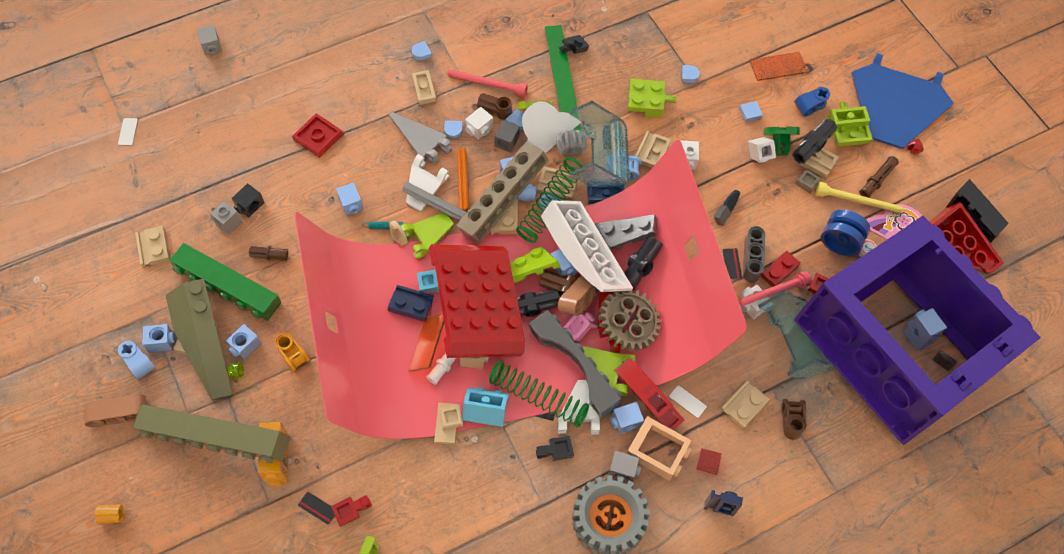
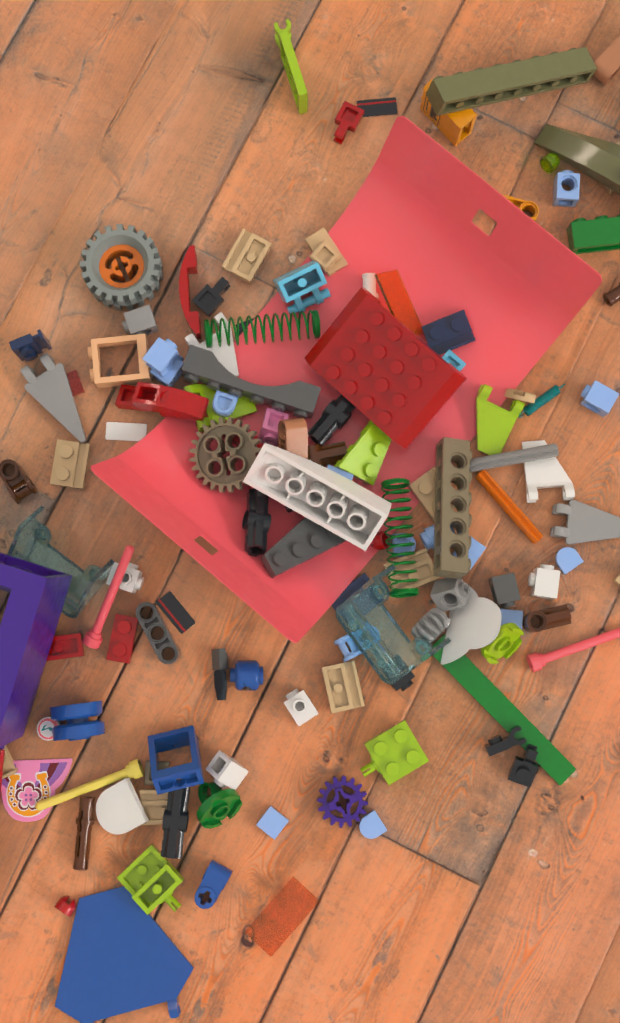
camera: 145 degrees right, 20 degrees up
(507, 460) = (247, 256): none -> tan plate
(548, 147) = (450, 593): none -> light grey brick
(556, 482) = (189, 266): none -> red slope
(579, 61) = (498, 744): none -> black plate
(605, 362) = (224, 403): none -> light blue tile
(628, 419) = (161, 356): none -> light blue brick
(707, 96) = (331, 804): none -> dark purple gear
(711, 193) = (247, 675): none -> blue head
(725, 459) = (55, 394): none -> light grey flag
(797, 153) = (189, 773): none -> blue window
(846, 172) = (120, 808): none -> white tile

